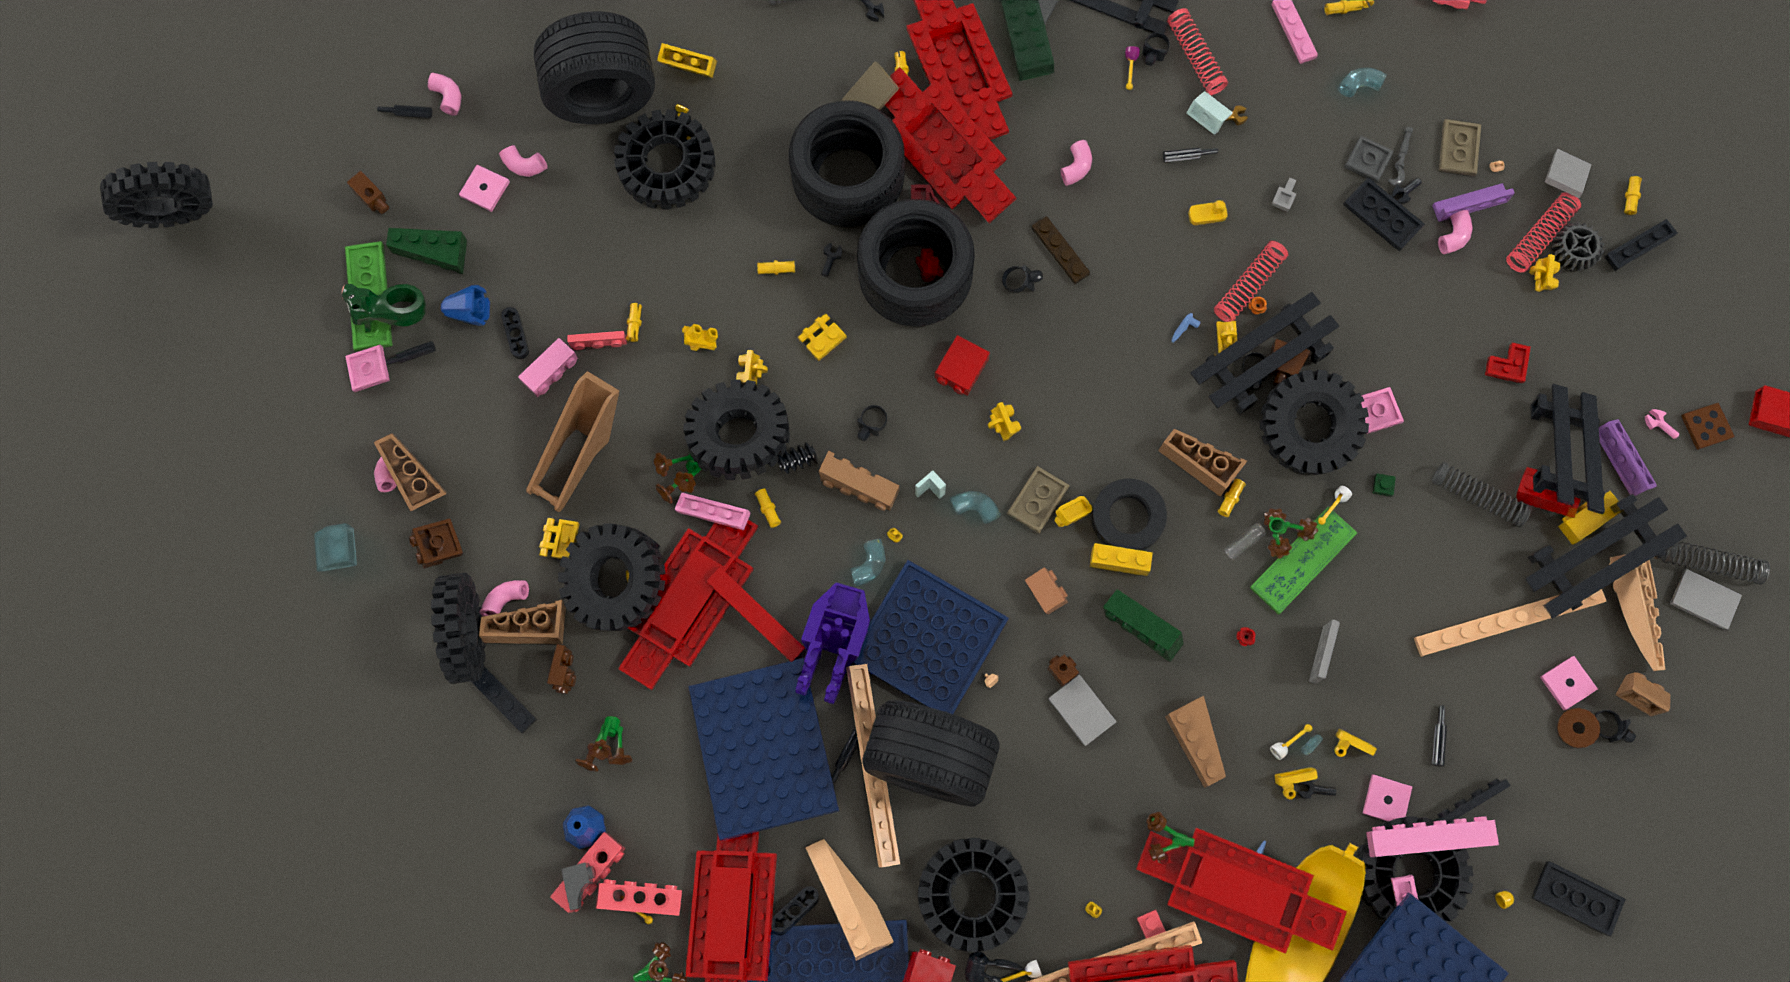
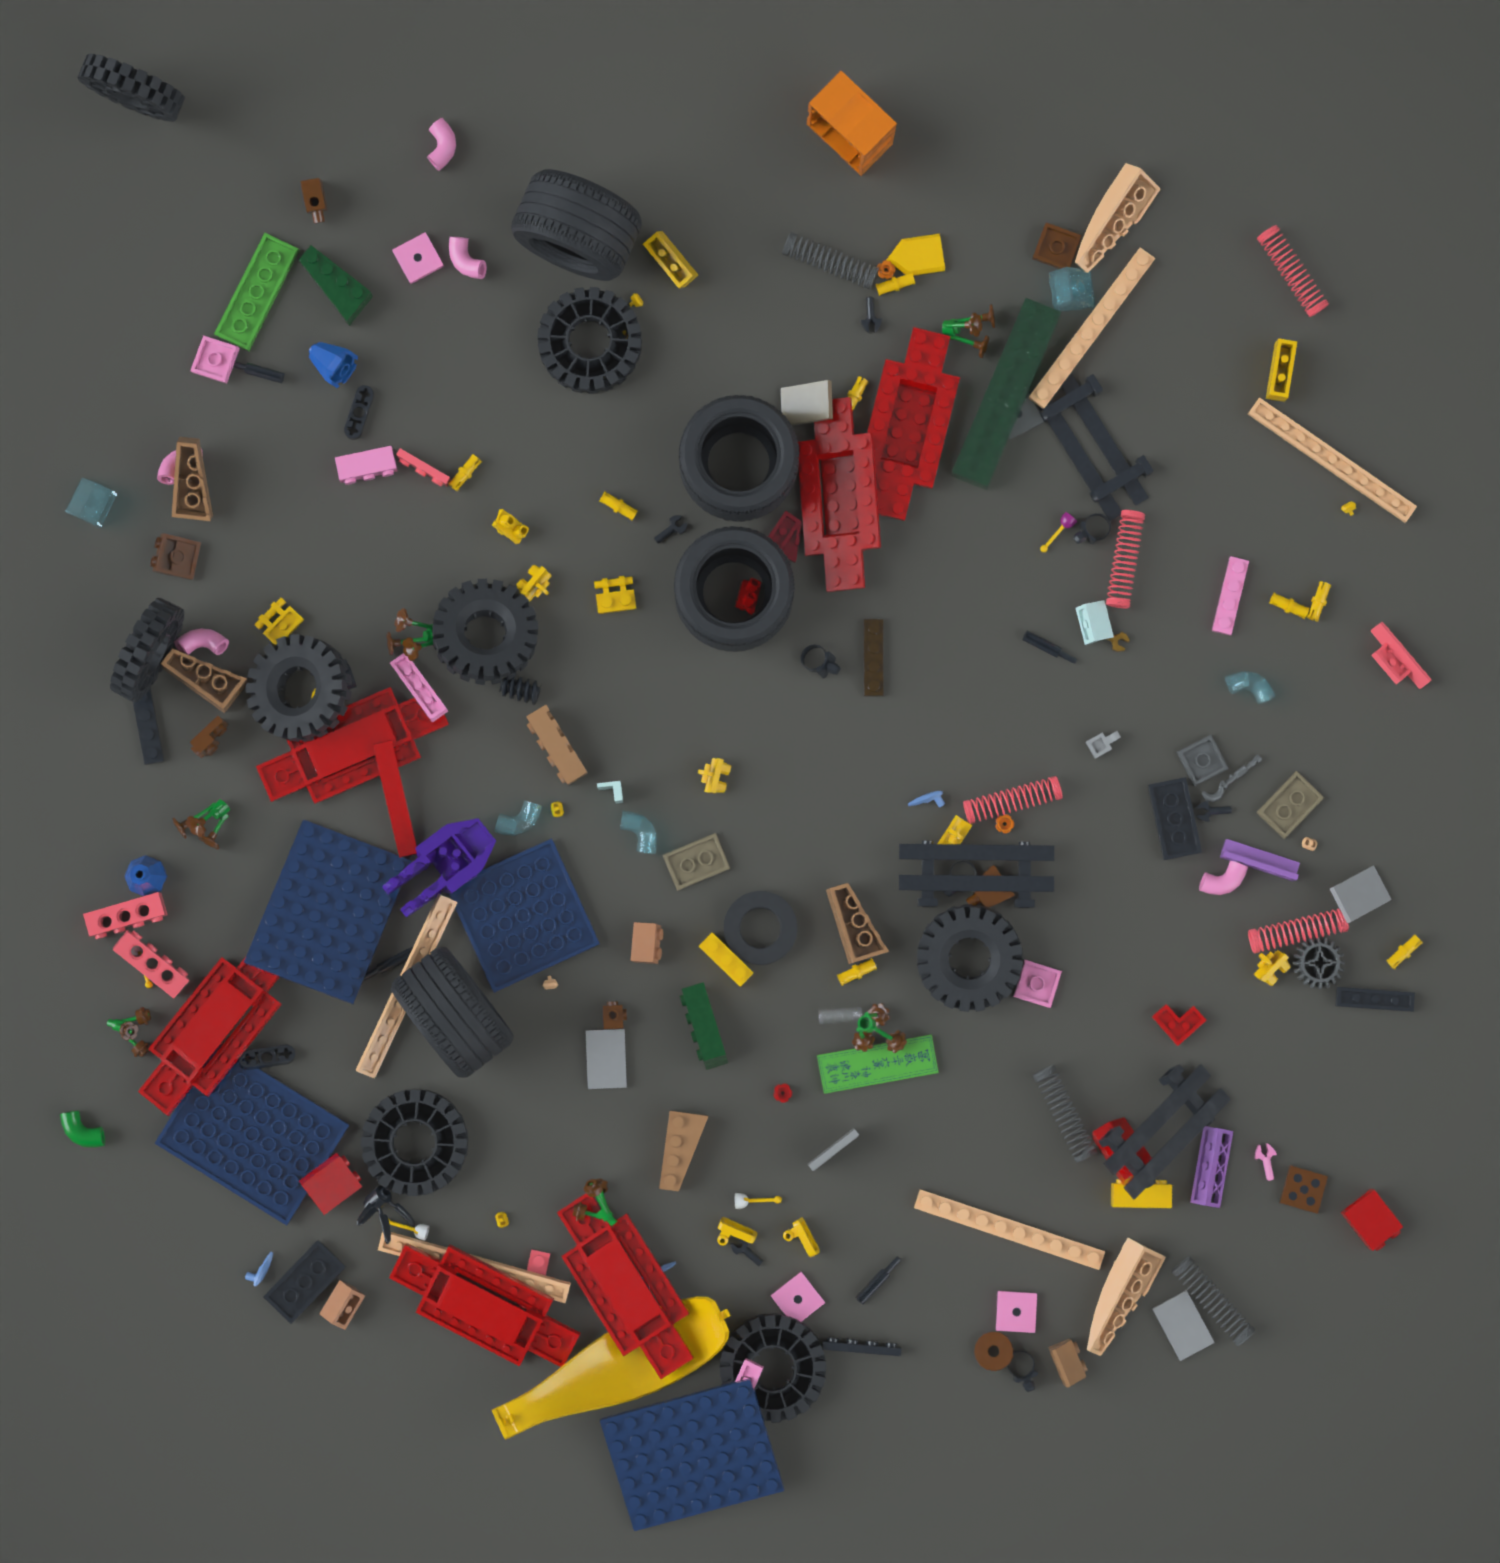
camera: 25 degrees right, 10 degrees up
(367, 306) = (248, 308): dark green animal -> none
(410, 111) = (398, 138): black axle -> none
(576, 880) = (110, 917): dark grey arch -> none
(589, 411) = (376, 534): medium nougat piece -> none
(767, 508) = (467, 714): yellow pin -> none
(851, 903) = (314, 1080): light nougat wedge -> none
(865, 430) = (591, 705): black piece -> none
(962, 365) = (714, 703): red brick -> none
(1072, 511) = (716, 892): yellow piece -> none
(1081, 164) = (947, 593): bright pink cylinder -> none
(1208, 213) = (1024, 712): yellow piece -> none
(1311, 744) = (768, 1214): clear light blue tile -> none
(1342, 495) = (949, 1033): hinge -> none
(1384, 484) = (992, 1049): dark green plate -> none
(1432, 838) = (802, 1351): bright pink brick -> none
(1504, 899) = (830, 1437): yellow hinge -> none
(1578, 898) = (888, 1477): black plate -> none
(1633, 520) = (1167, 1223): black fence -> none

